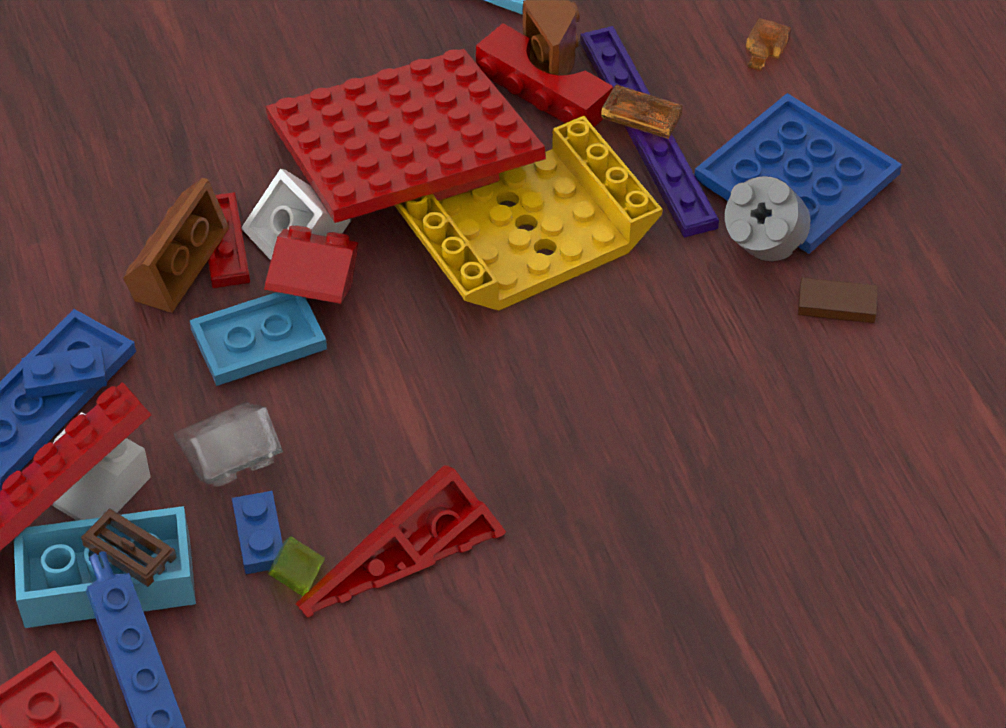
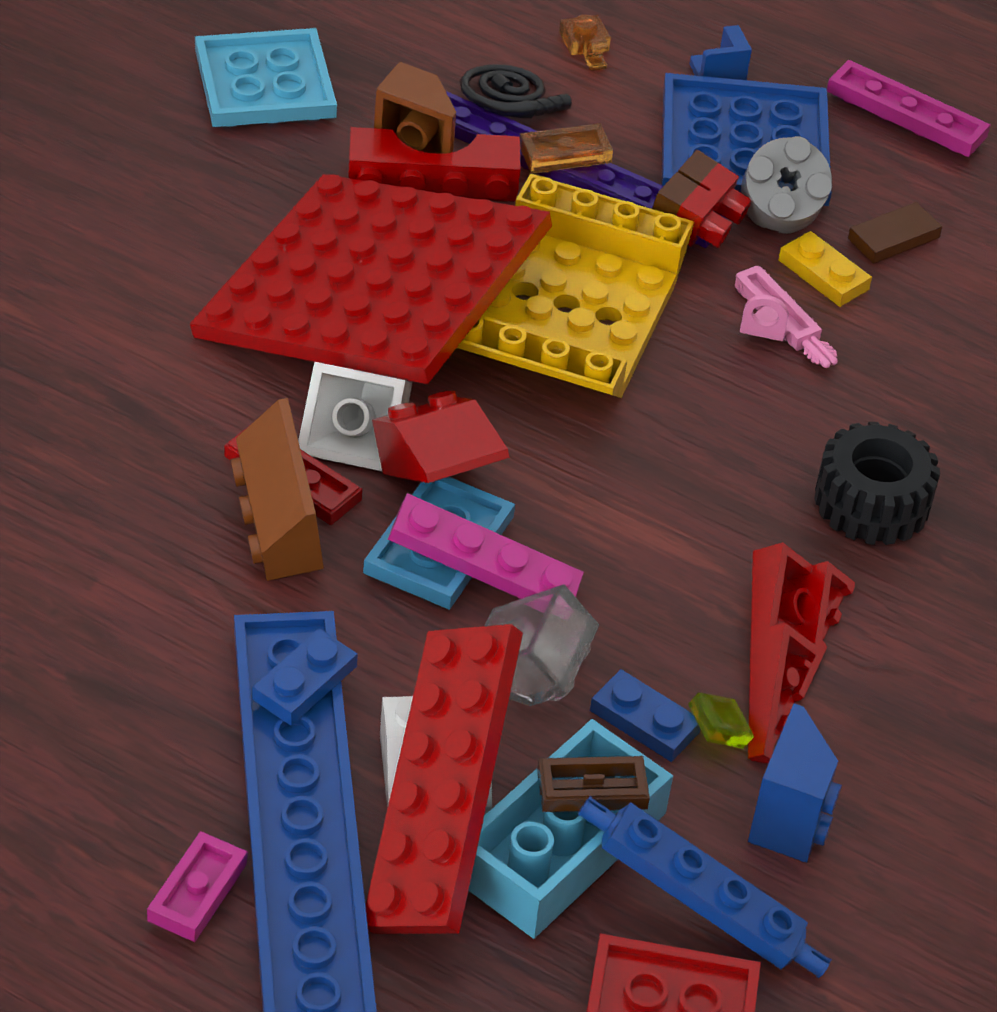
camera: 45 degrees left, 5 degrees down
(263, 362) = (478, 551): none -> dark pink plate
(271, 636) = (796, 791): none -> blue slope
(594, 444) = (876, 483): none -> black tyre
(657, 67) = (511, 100): none -> black piece
(669, 315) = (780, 316): none -> bright pink piece
(690, 196) = (700, 194): none -> red hips
(751, 298) = (825, 268): none -> yellow plate
(846, 109) = (728, 61): none -> blue panel
(957, 213) = (908, 108): none -> dark pink plate

